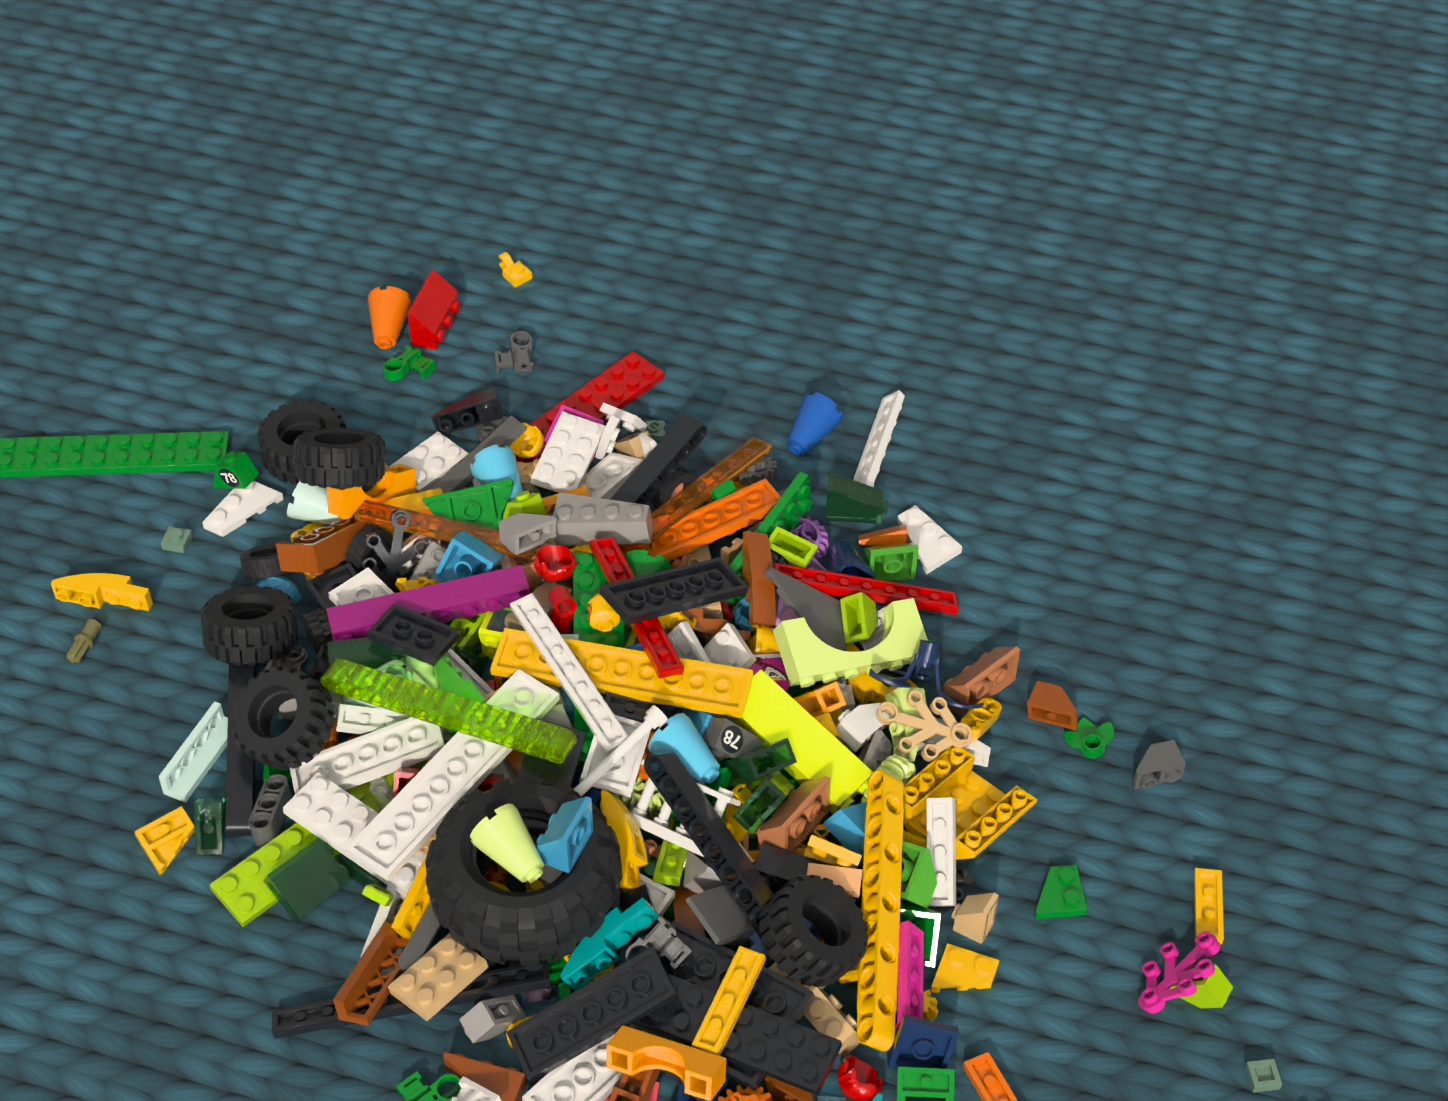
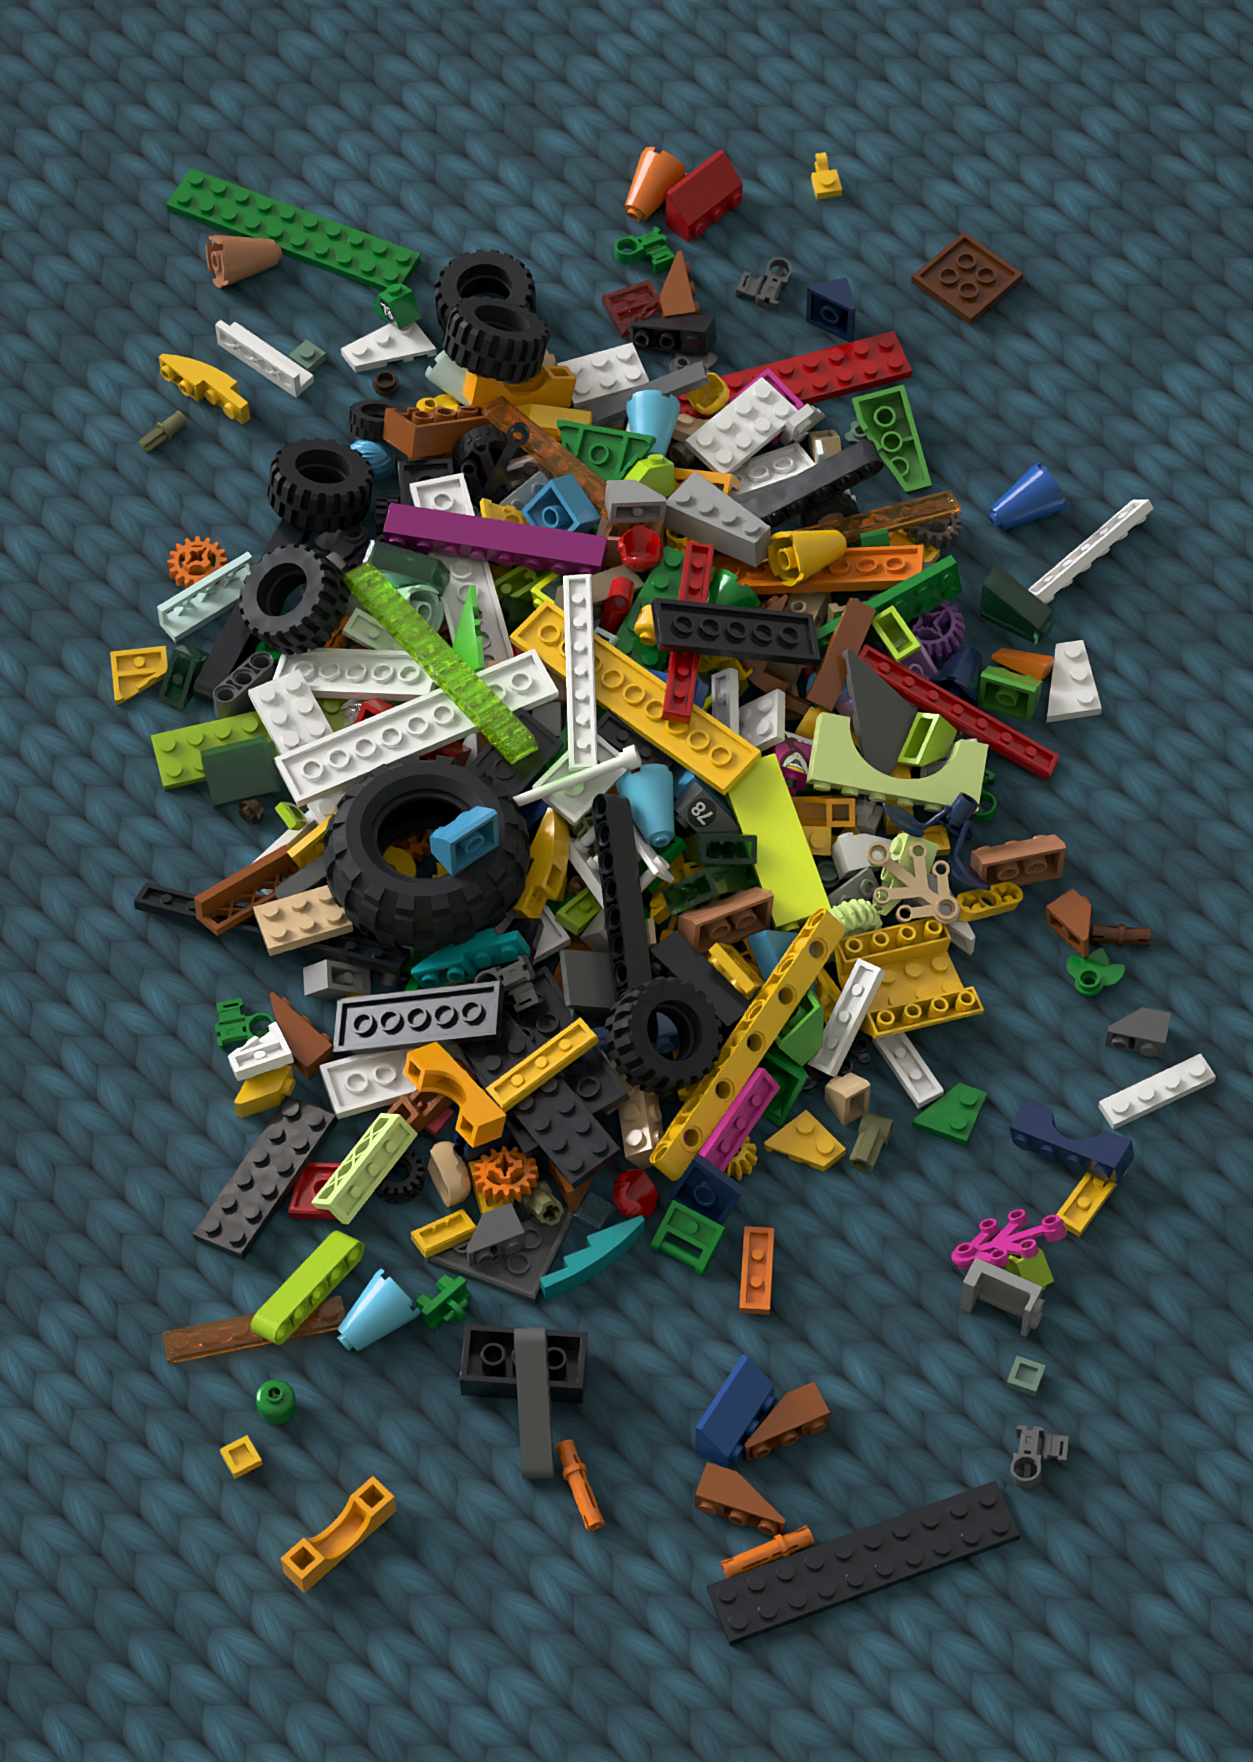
camera: 30 degrees right, 10 degrees up
(78, 486) = (239, 257): none -> nougat cone
(139, 554) = (263, 358): none -> white fence
(171, 729) = (197, 561): none -> orange gear
(254, 533) = (385, 383): none -> dark brown plate
(334, 909) = (251, 811): none -> dark brown plate
(413, 634) = (456, 568): black plate -> none
(420, 406) = (631, 305): none -> clear red wing
(453, 382) = (678, 291): none -> dark orange slope
(509, 843) = (407, 822): yellowish green cone -> none
(581, 349) = (832, 308): none -> dark blue slope
(628, 420) = (827, 403): white plate -> none
(663, 297) = (967, 278): none -> reddish brown plate
(670, 403) = (890, 425): none -> bright green wedge
(680, 519) = (804, 553): none -> yellow cone
(846, 877) = (726, 1000): light nougat tile -> none
(1005, 873) = (909, 1068): none -> white plate
(1014, 939) = (872, 1135): none -> olive piece
(1092, 701) = (1121, 935): none -> reddish brown pin
(1198, 806) = (1156, 1091): none -> white plate
(1201, 871) = (1103, 1156): none -> dark blue arch
(1207, 1013) = (1003, 1291): none -> light grey panel

